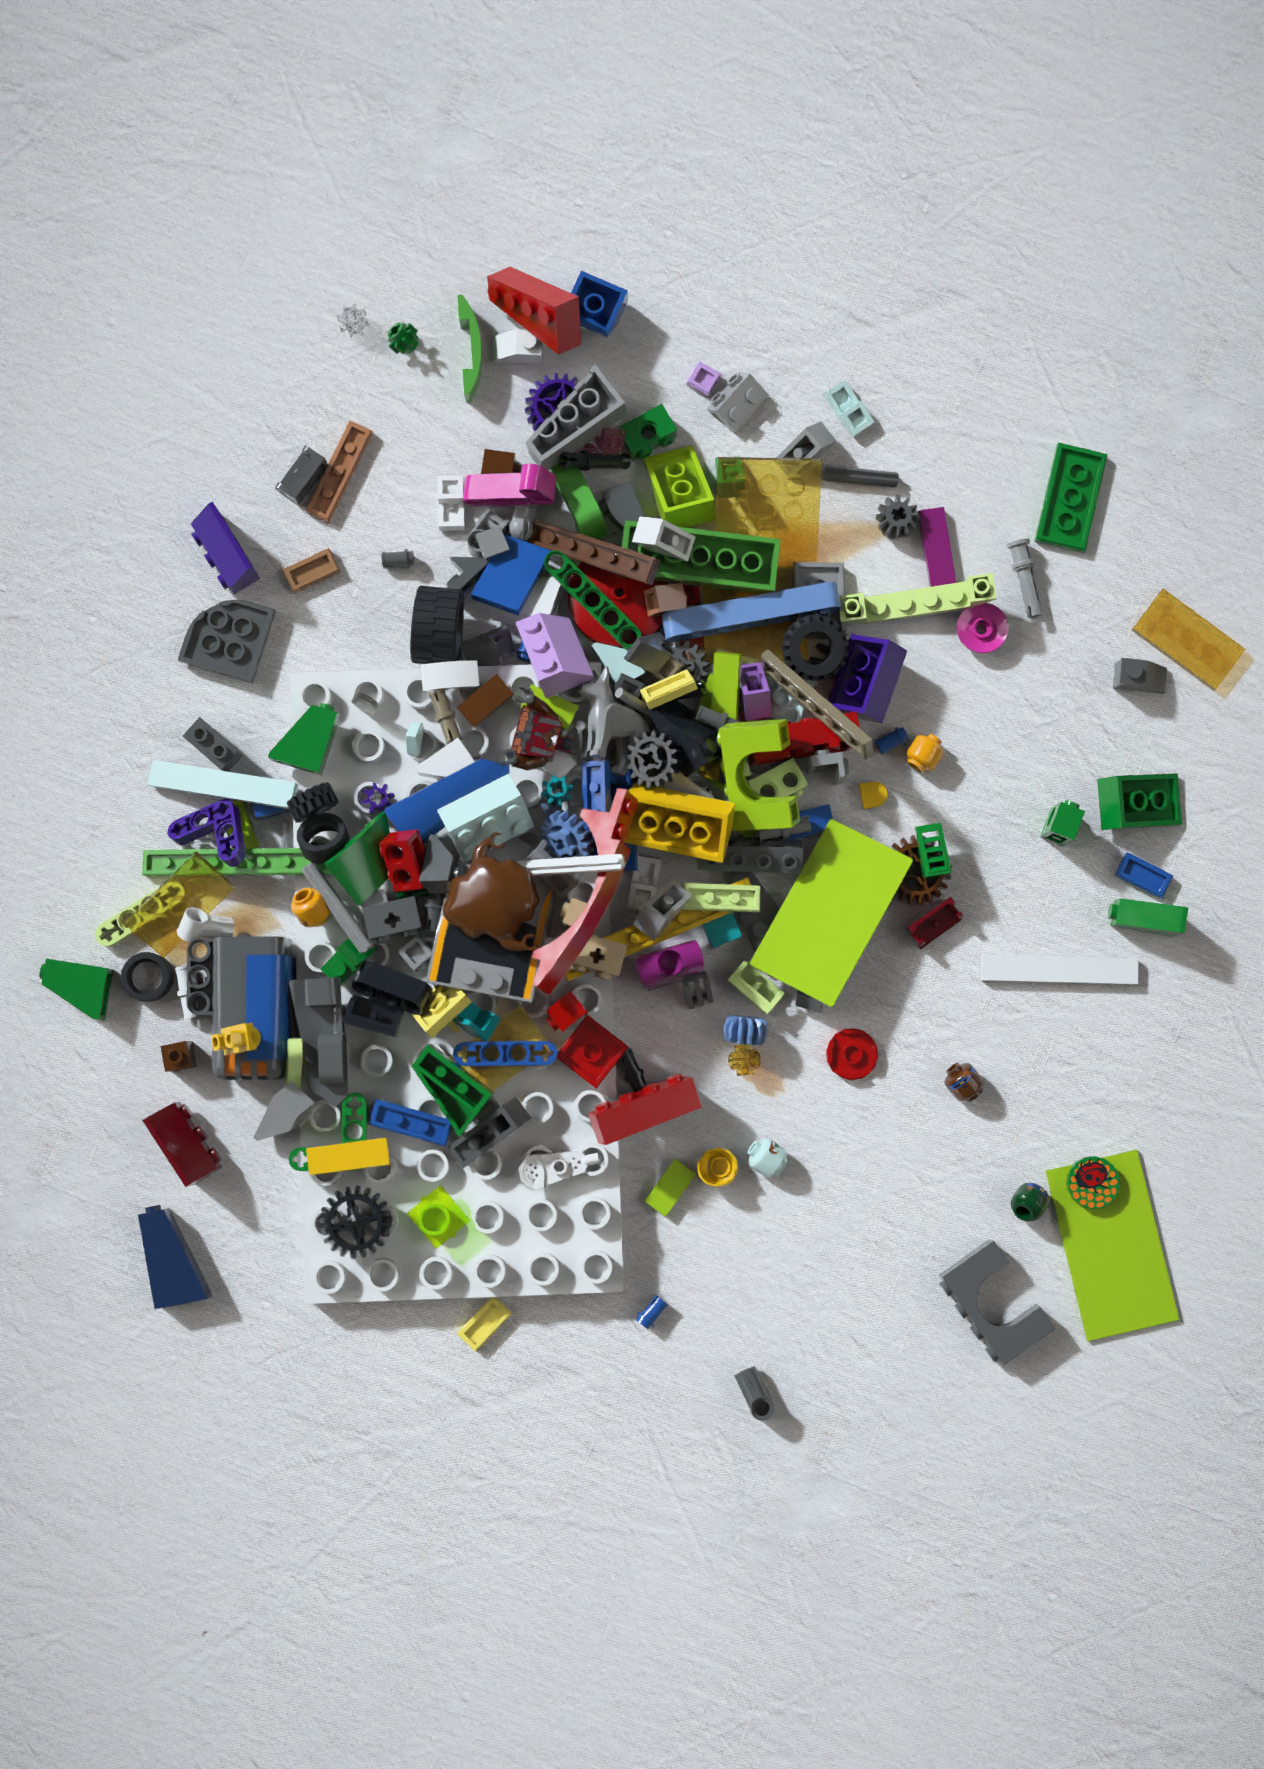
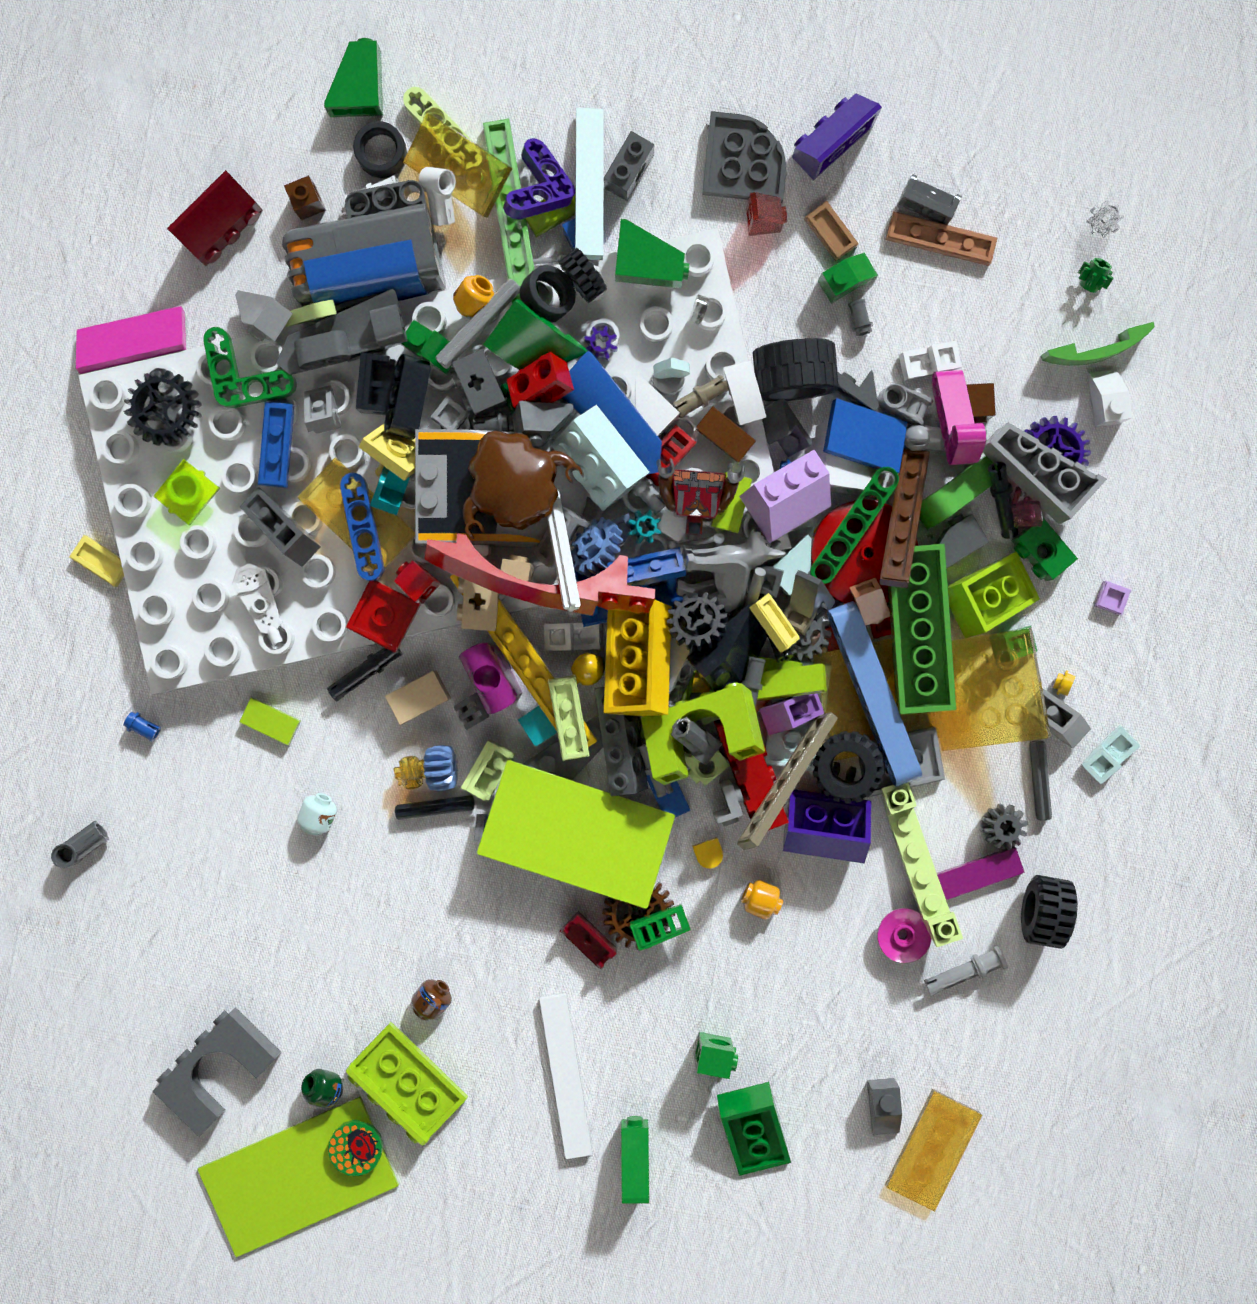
camera: 80 degrees right, 5 degrees up
(169, 1261) = (99, 232): dark blue slope -> none
(236, 1039) = (319, 246): yellow hips -> none
(280, 1249) = (130, 340): none -> dark pink tile
(285, 628) = (765, 214): none -> clear red slope
(348, 1156) = (226, 386): yellow tile -> none
(357, 564) = (846, 276): none -> green slope
(386, 1072) = (321, 410): none -> light grey slope
(452, 1087) = (314, 478): green wedge -> none
(480, 740) = (684, 439): none -> red slope
(492, 542) = (895, 410): light grey tile -> none
(529, 780) = (649, 495): none -> light grey pin
(538, 307) = (1156, 409): red wedge -> none
(599, 303) = (1171, 468): blue slope -> none
(644, 1108) = (335, 681): red wedge -> none
(662, 909) = (541, 660): light grey slope -> none
(663, 538) = (932, 587): white slope -> none
(674, 1039) = (418, 697): none -> tan panel
(679, 871) = (588, 669): none -> yellow piece
(717, 1167) = (296, 765): yellow hair -> none
(738, 400) = (1096, 637): light grey bracket -> none
(765, 781) = (697, 741): none -> dark grey piece
(774, 438) = (1064, 683): none -> yellow plate
(781, 1048) = (434, 807): none -> black axle
(851, 1054) = (439, 880): red tile -> none
(892, 740) = (769, 863): blue pin -> none
(982, 491) = (1049, 911): none -> black tyre
(1039, 1122) = (405, 1084): none -> lime bracket
(1070, 497) = (1060, 1002): green tile -> none
(1143, 875) = (679, 1145): blue tile -> none

